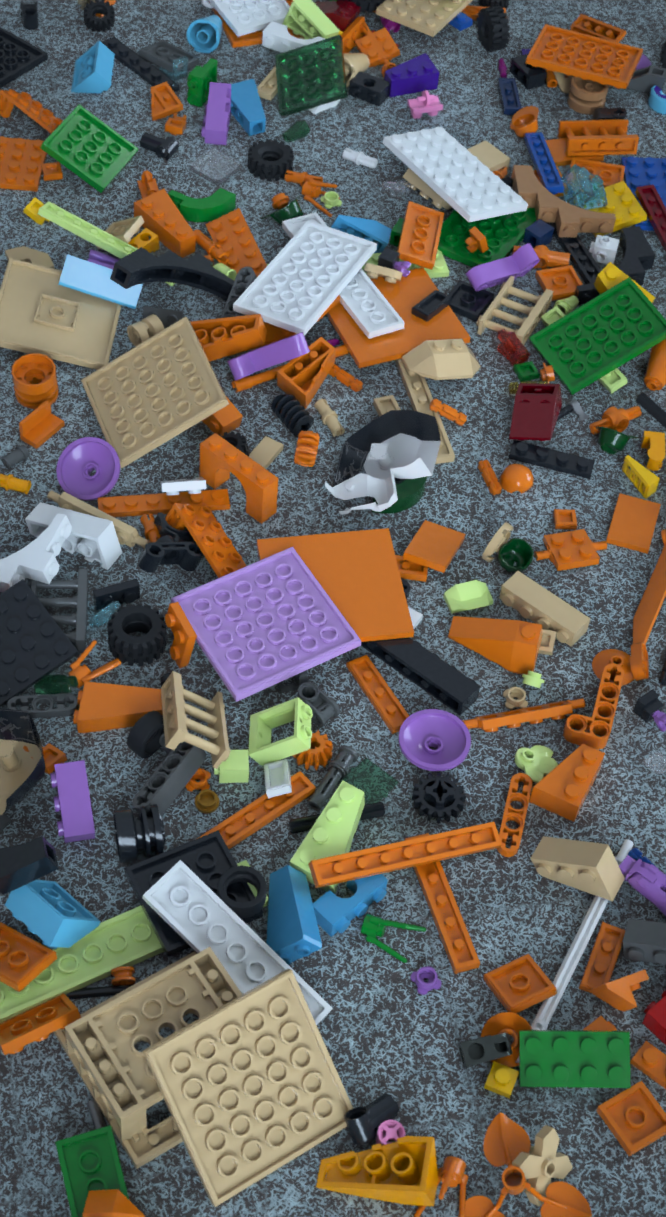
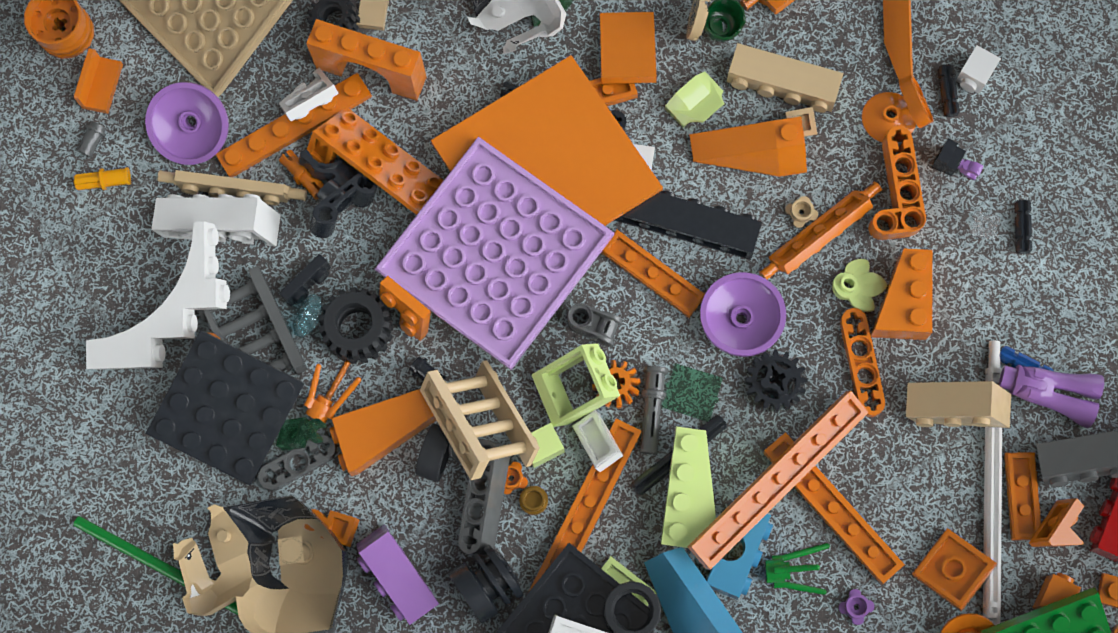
camera: 15 degrees left, 25 degrees up
(533, 679) = (811, 180): yellowish green plate -> none

